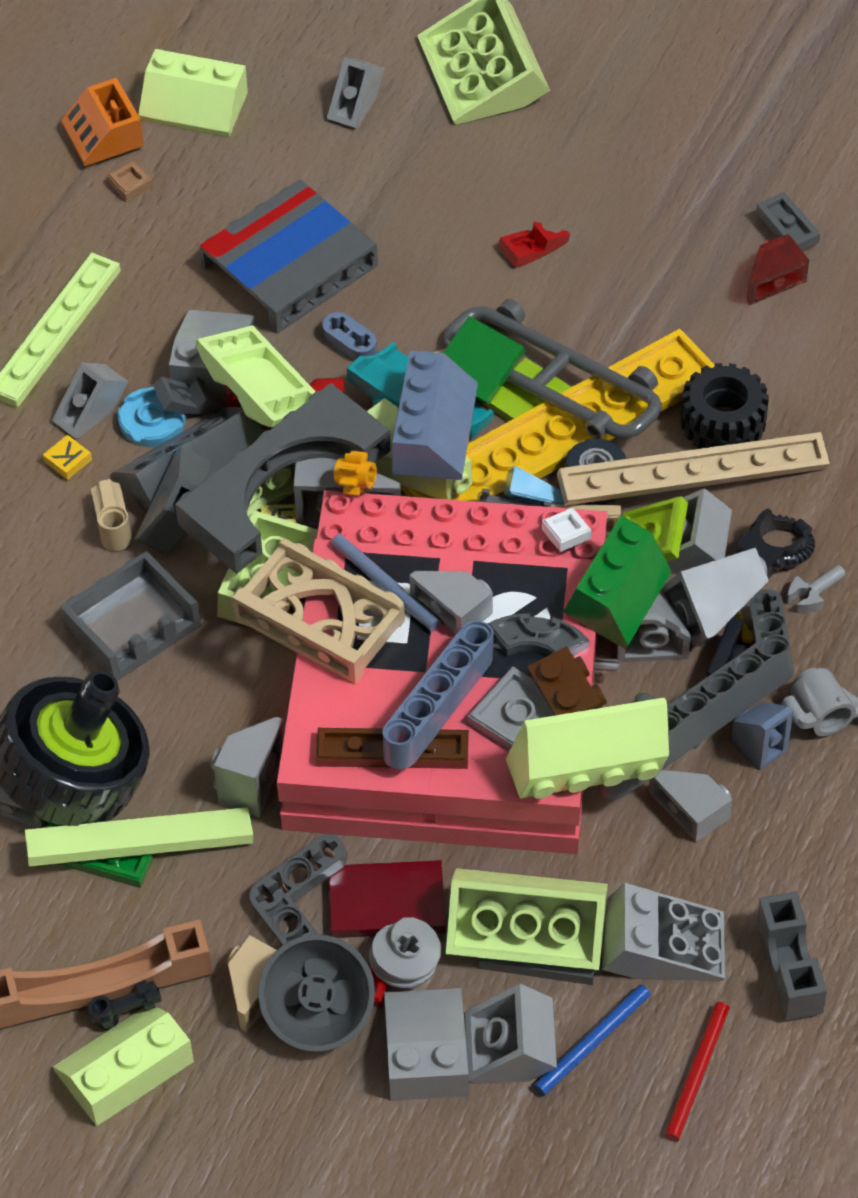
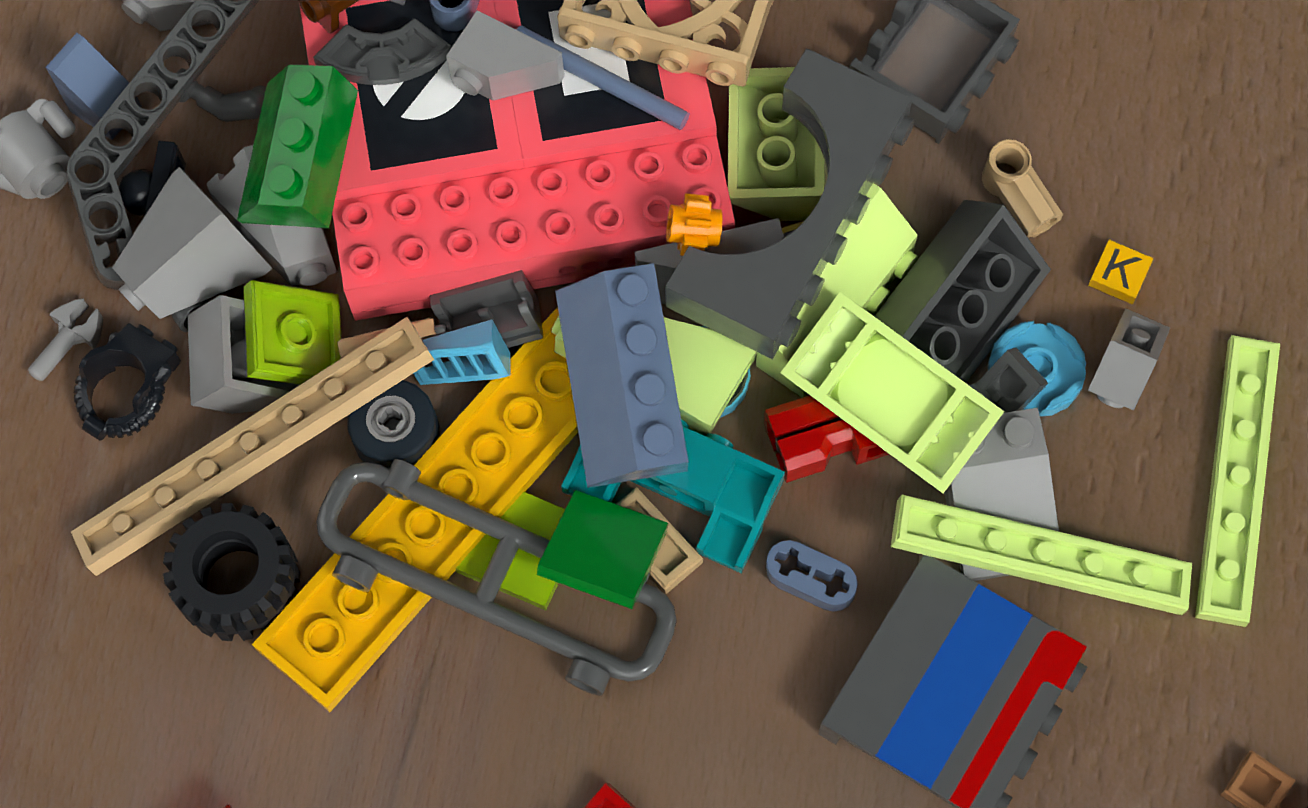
camera: 165 degrees right, 15 degrees up
(160, 524) = (933, 203): dark grey slope -> none
(202, 301) = (1041, 555): none -> yellowish green tile
(566, 529) = (385, 222): white tile -> none

